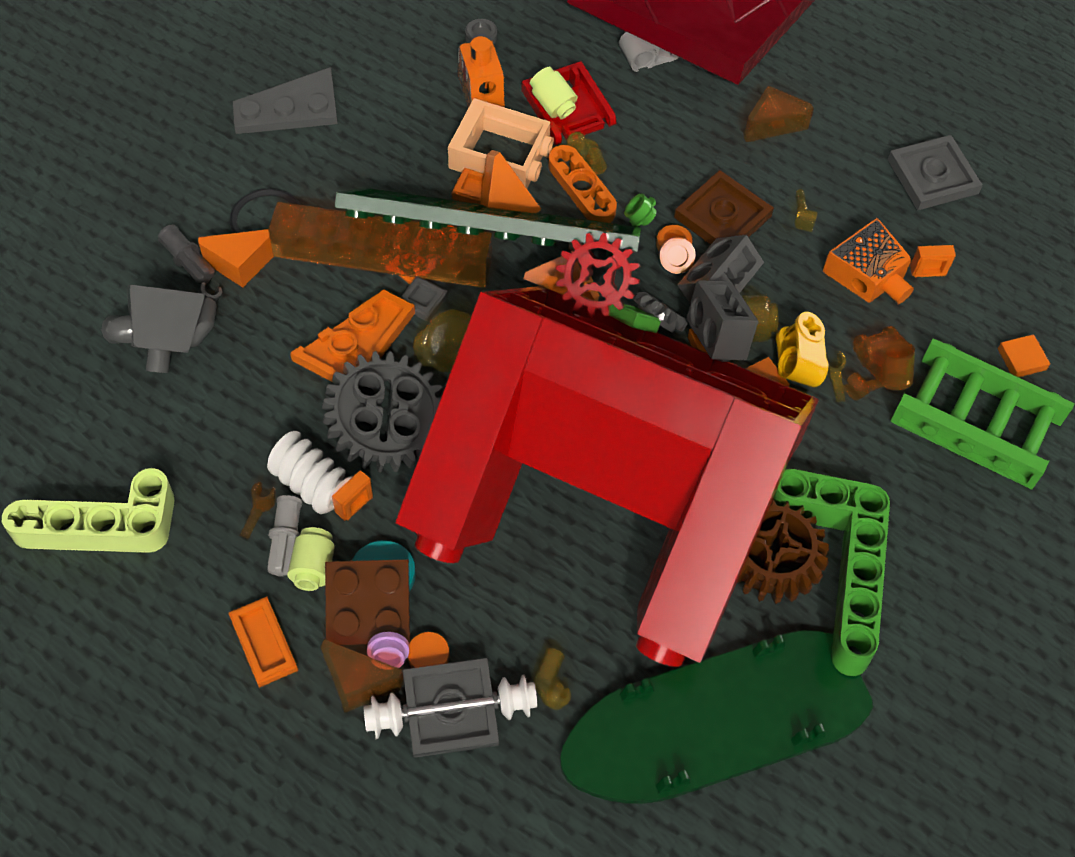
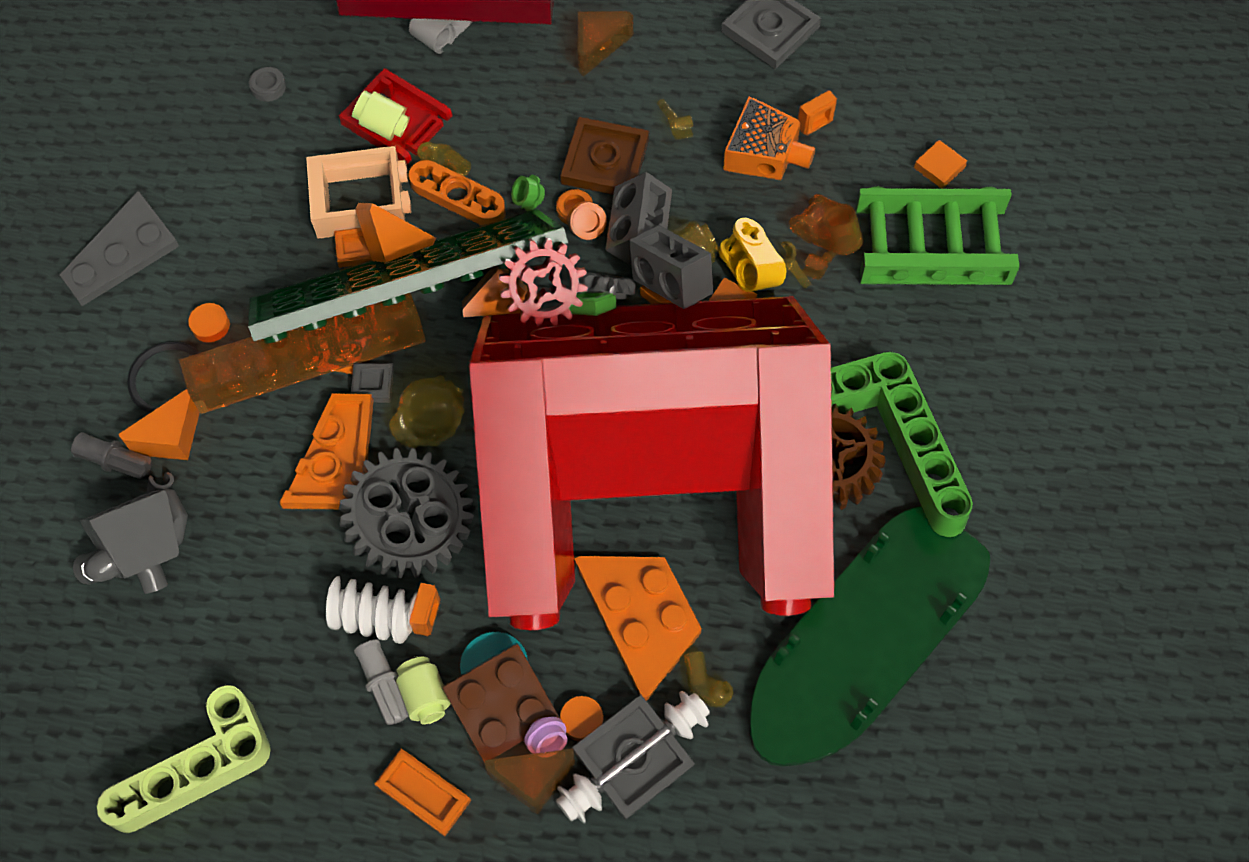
camera: 25 degrees left, 5 degrees up
(260, 505) = (339, 666): clear orange hand -> none
(322, 190) = (209, 322): none -> orange tile
(477, 65) = (292, 123): orange torso -> none
(531, 596) = (642, 614): none -> orange wing

